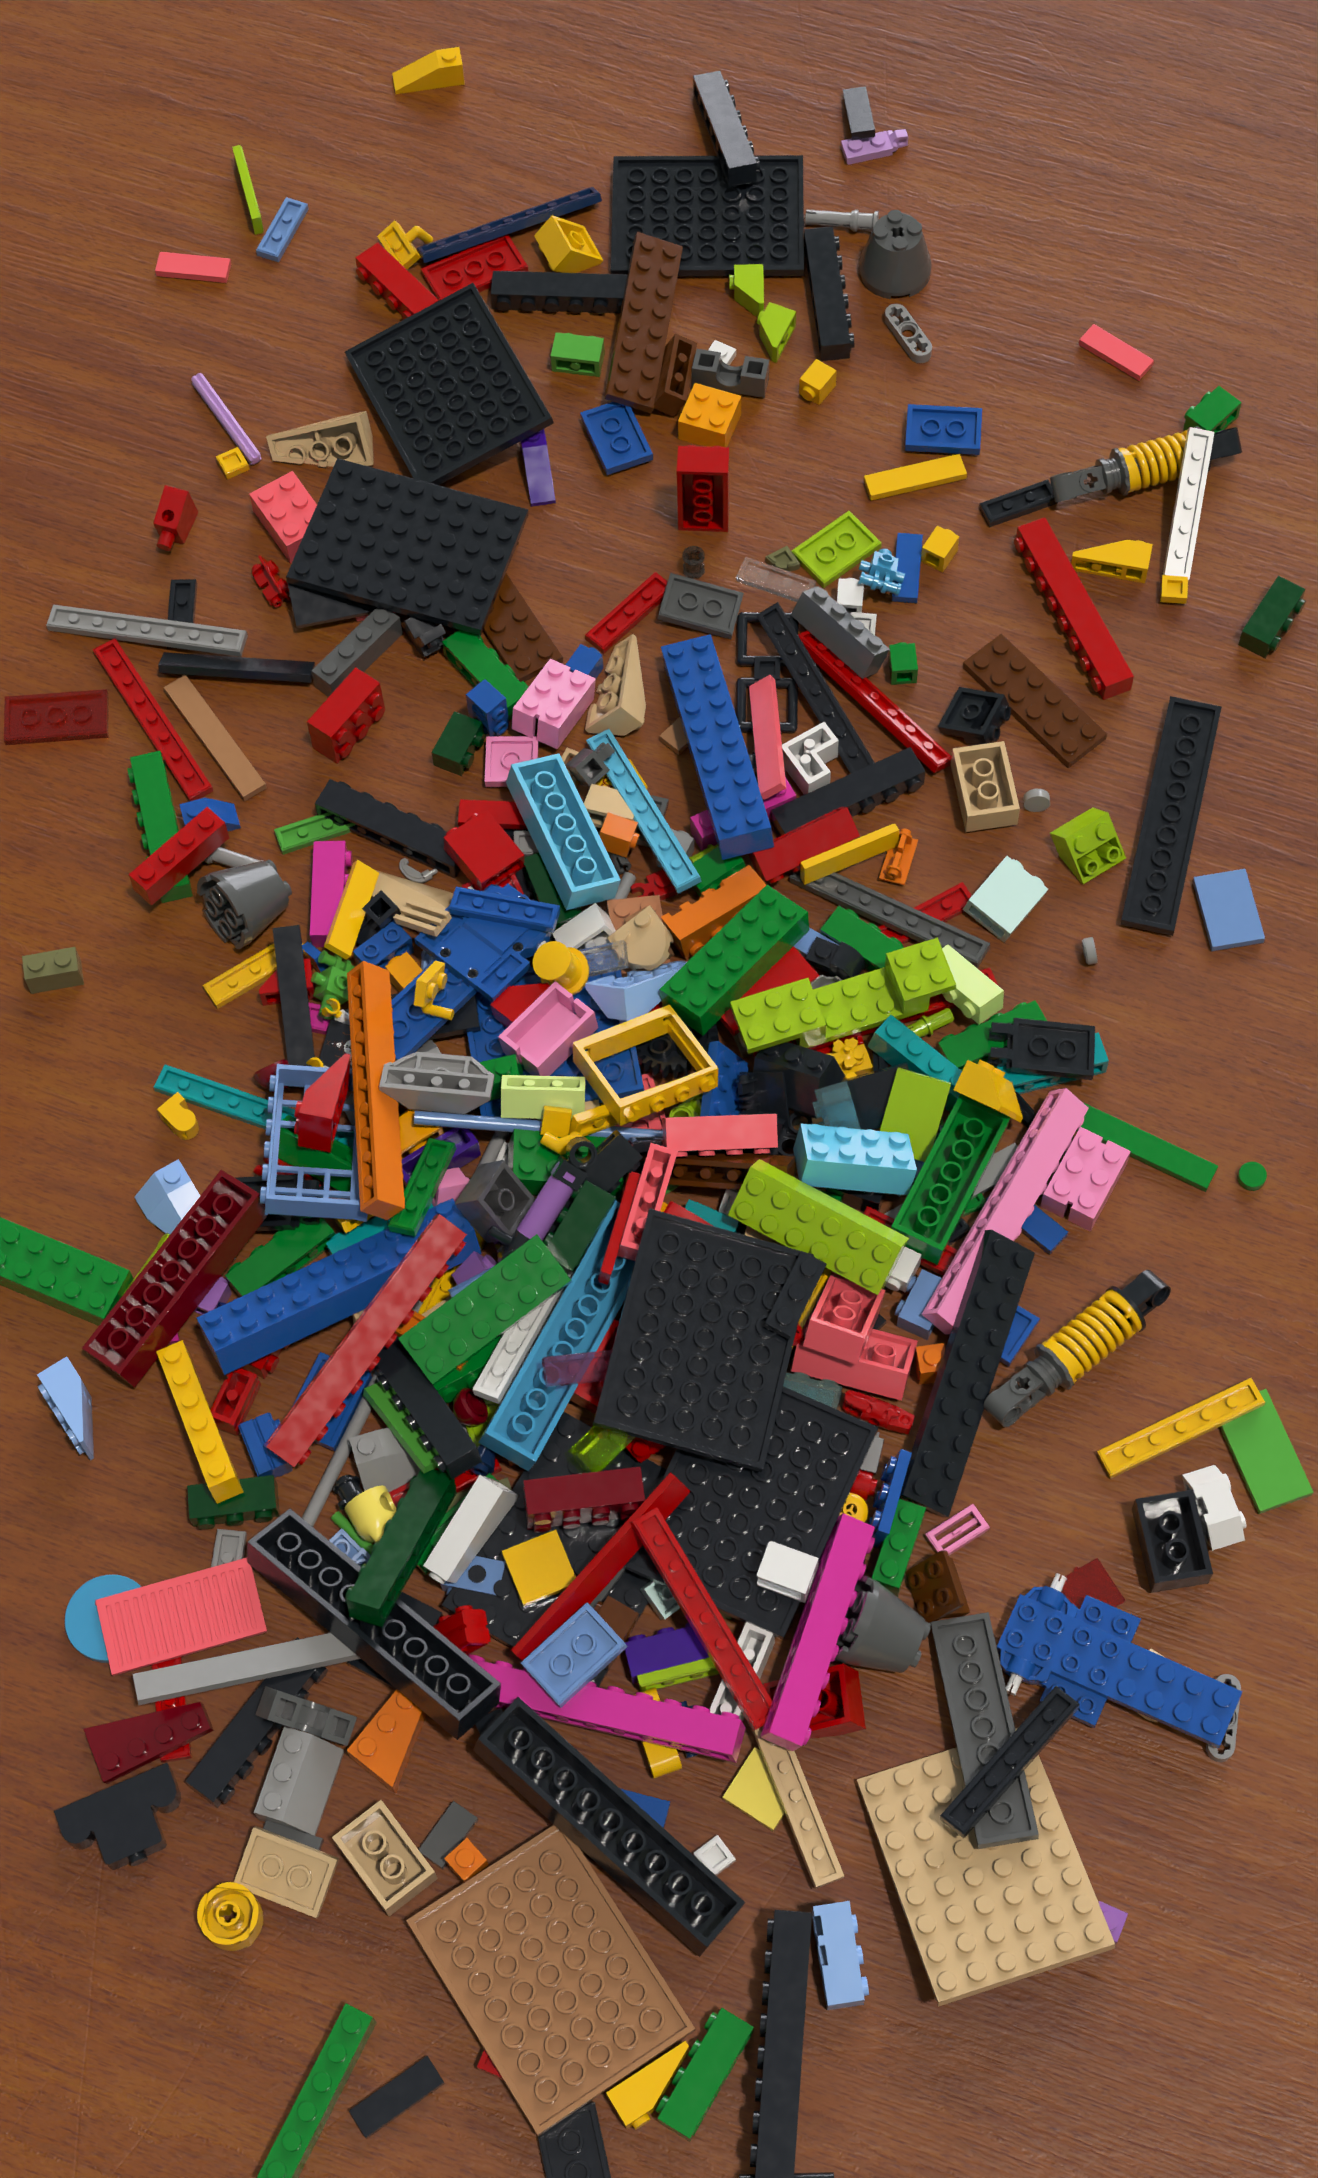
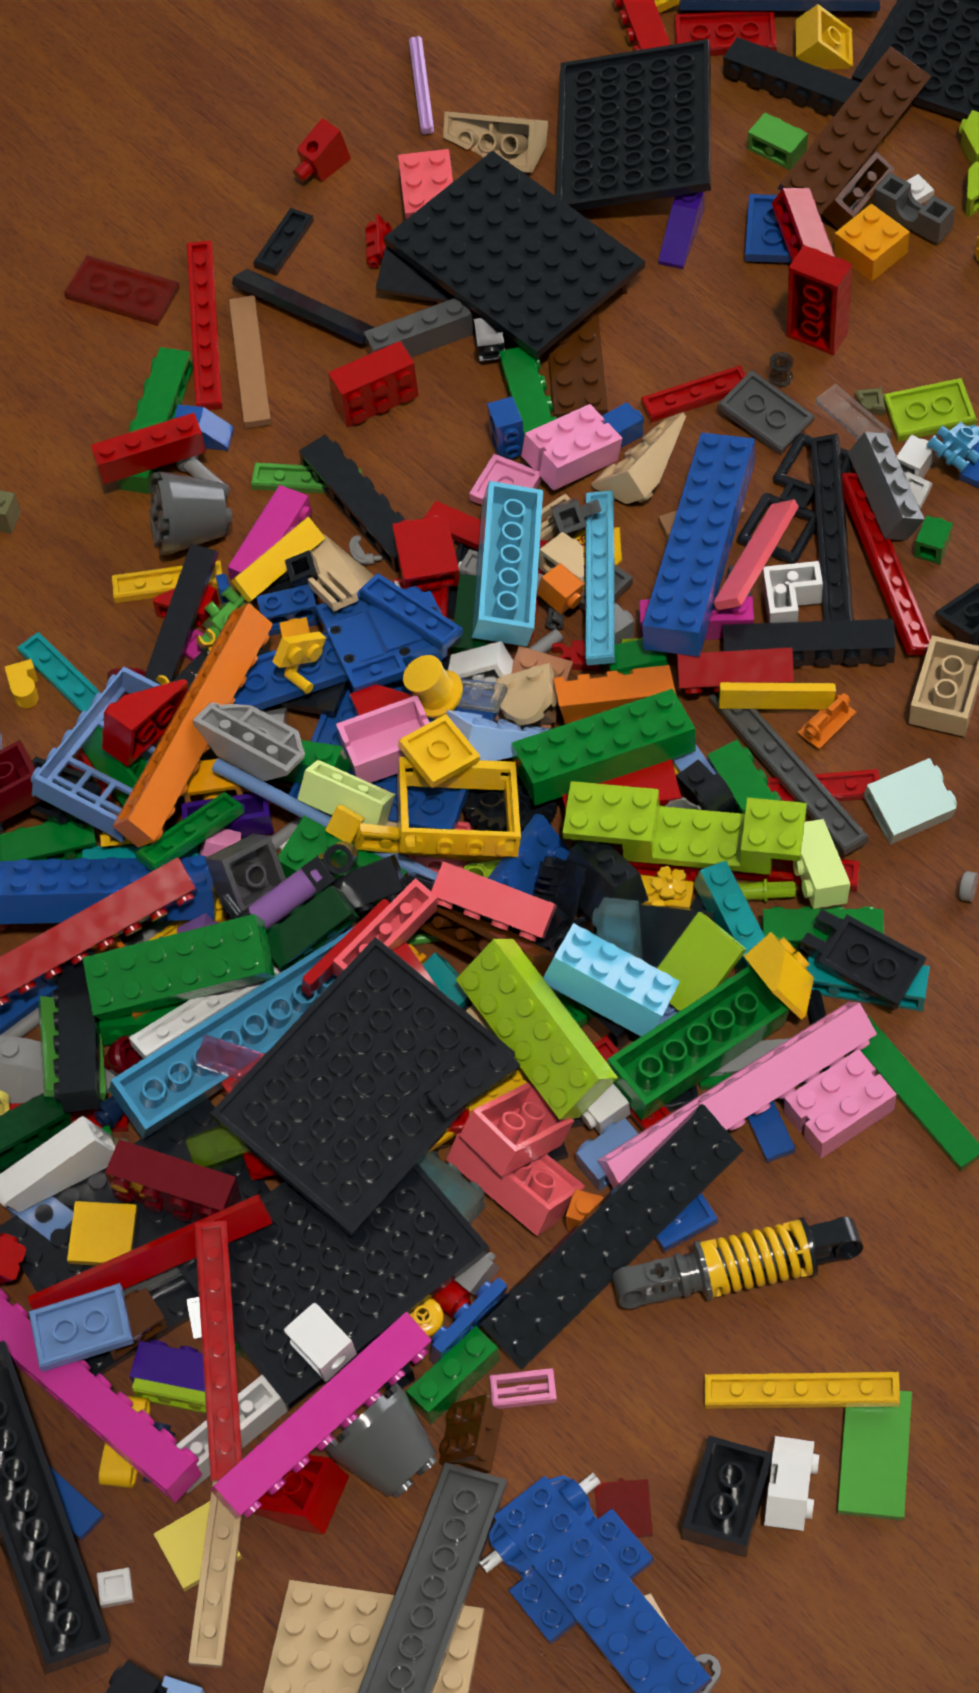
camera: 30 degrees right, 5 degrees down
(147, 630) = (244, 244): light grey tile -> none
(232, 463) = (405, 126): yellow tile -> none
(458, 744) = (464, 450): dark green brick -> none
(558, 1144) = (329, 839): yellow arm -> none
(606, 1023) = (439, 750): none -> yellow plate
(649, 431) = (800, 221): none -> brick
(877, 1412) = (508, 1237): red hinge -> none
(1009, 1762) = (436, 1631): black tile -> none

